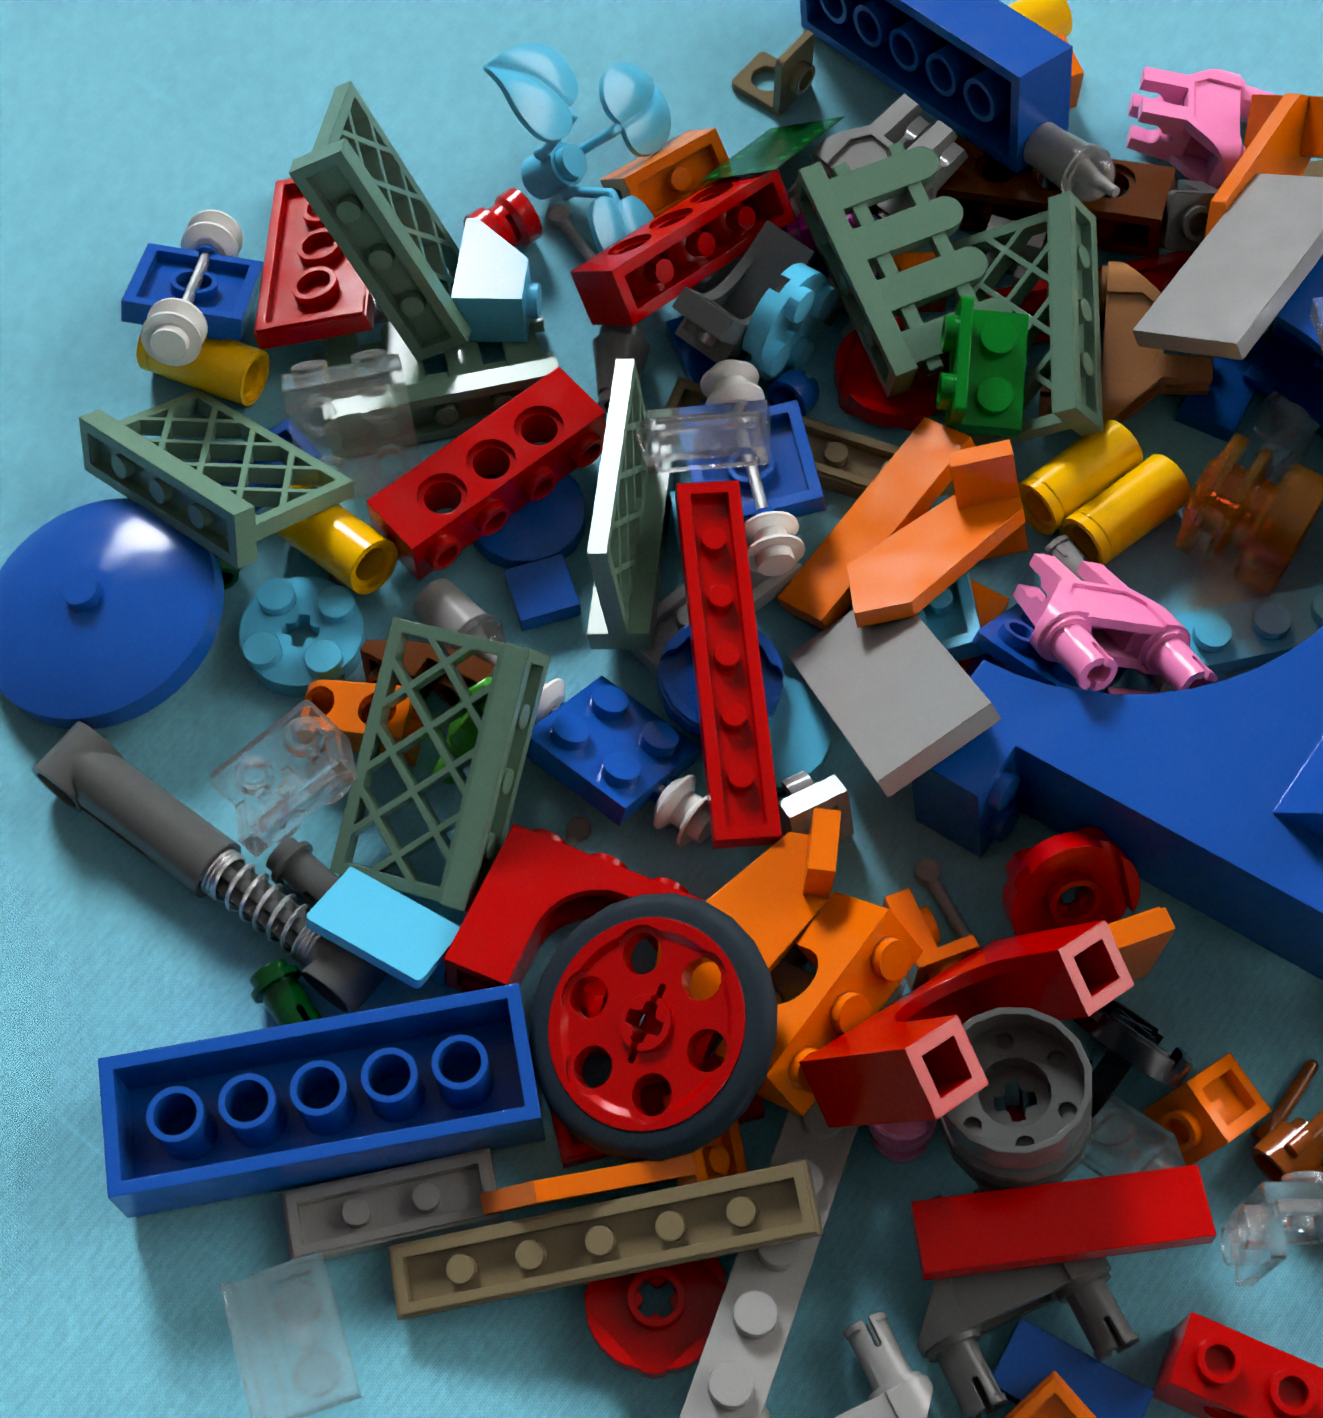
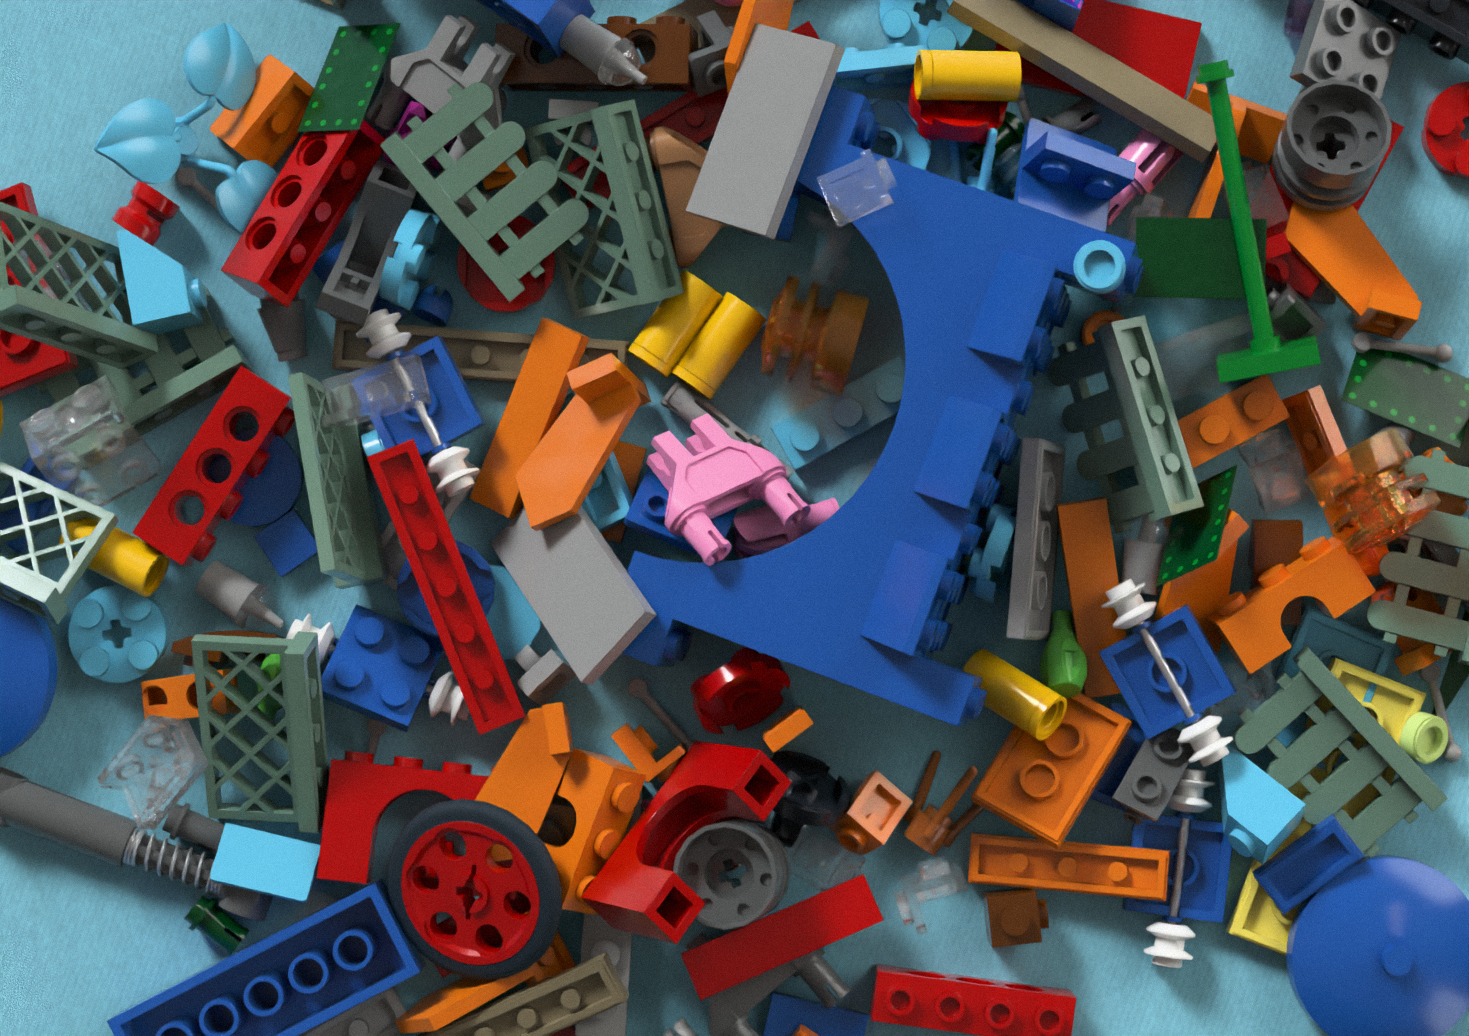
camera: 15 degrees left, 25 degrees up
(985, 370) = (578, 272): green bracket -> none

